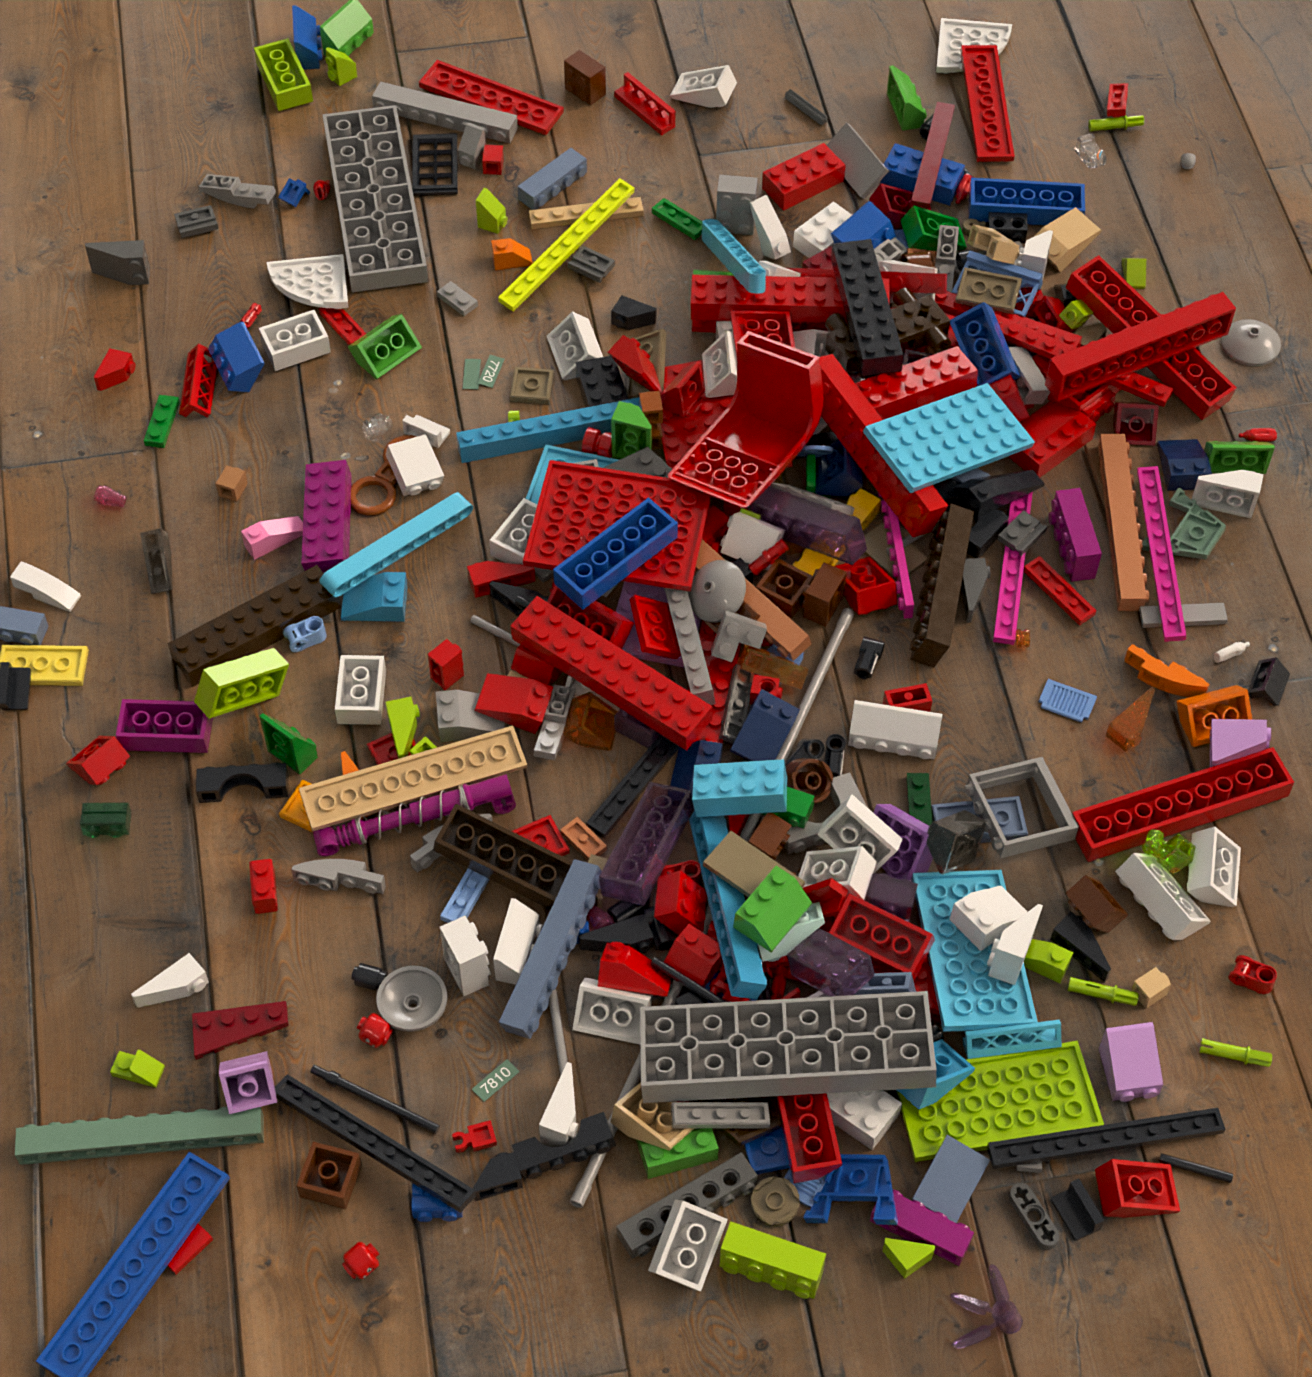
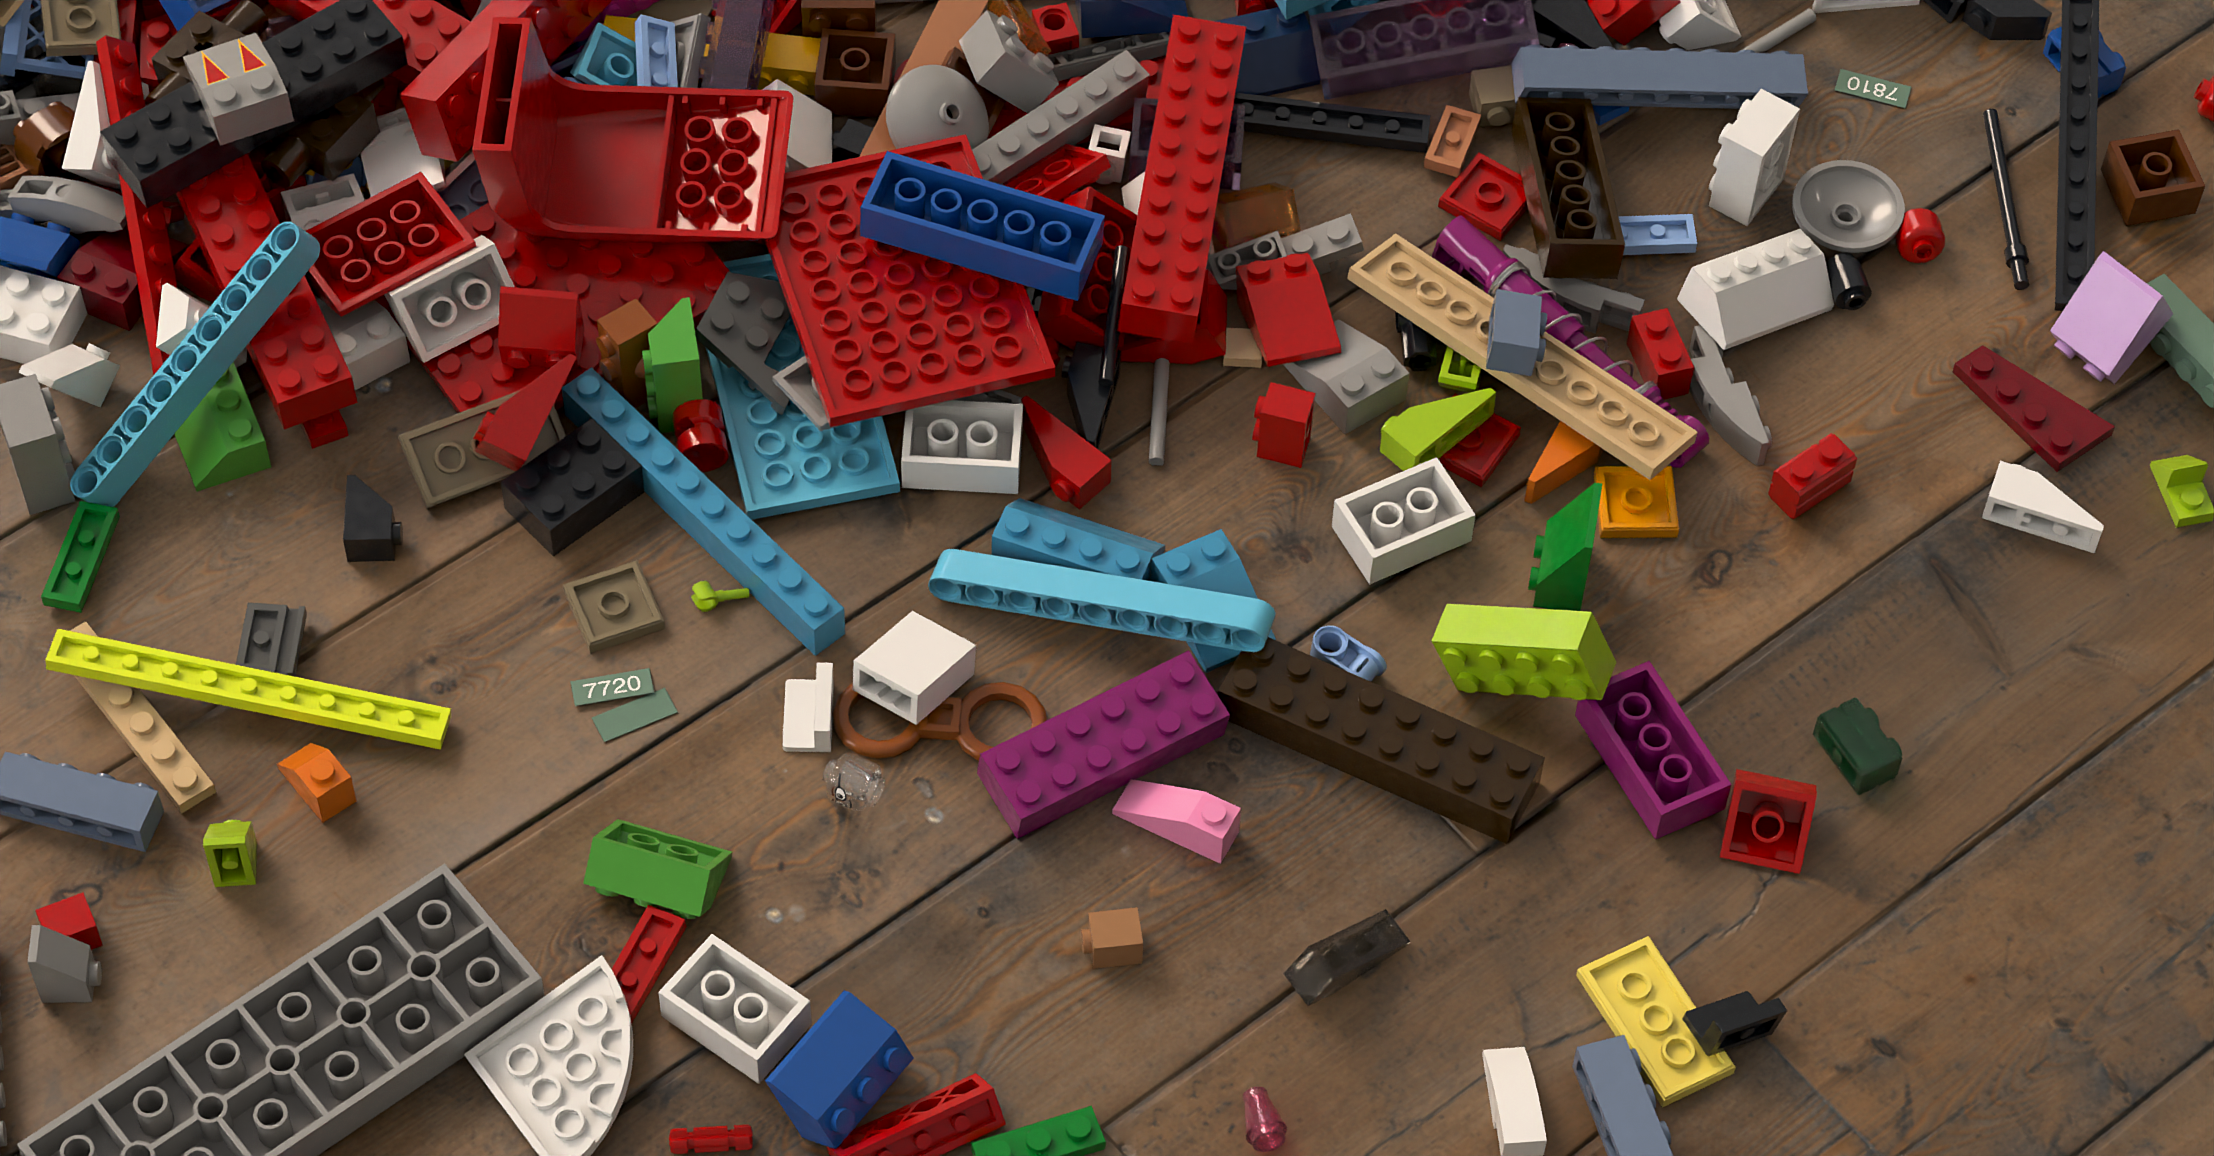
camera: 120 degrees left, 0 degrees up
(215, 782) = (1693, 635): black arch -> none
(383, 857) = (1660, 353): none -> red brick
(384, 919) = (1758, 289): none -> white slope
(418, 767) = (1515, 333): none -> sand blue brick
(419, 190) = (48, 1071): black piece -> none
(441, 559) = (1064, 540): none -> dark azure slope
(457, 298) = (467, 820): light grey plate -> none
(479, 1137) = (1969, 59): red plate -> none
(516, 941) = (1673, 136): white slope -> none
(573, 342) = (497, 571): white slope -> none
(666, 666) = (1116, 158): none -> white brick
(768, 557) = (822, 92): red pin -> none
(815, 484) = (655, 52): none -> light blue plate
(824, 471) = (607, 59): none -> medium azure slope
(860, 282) = (239, 88): none -> light grey slope

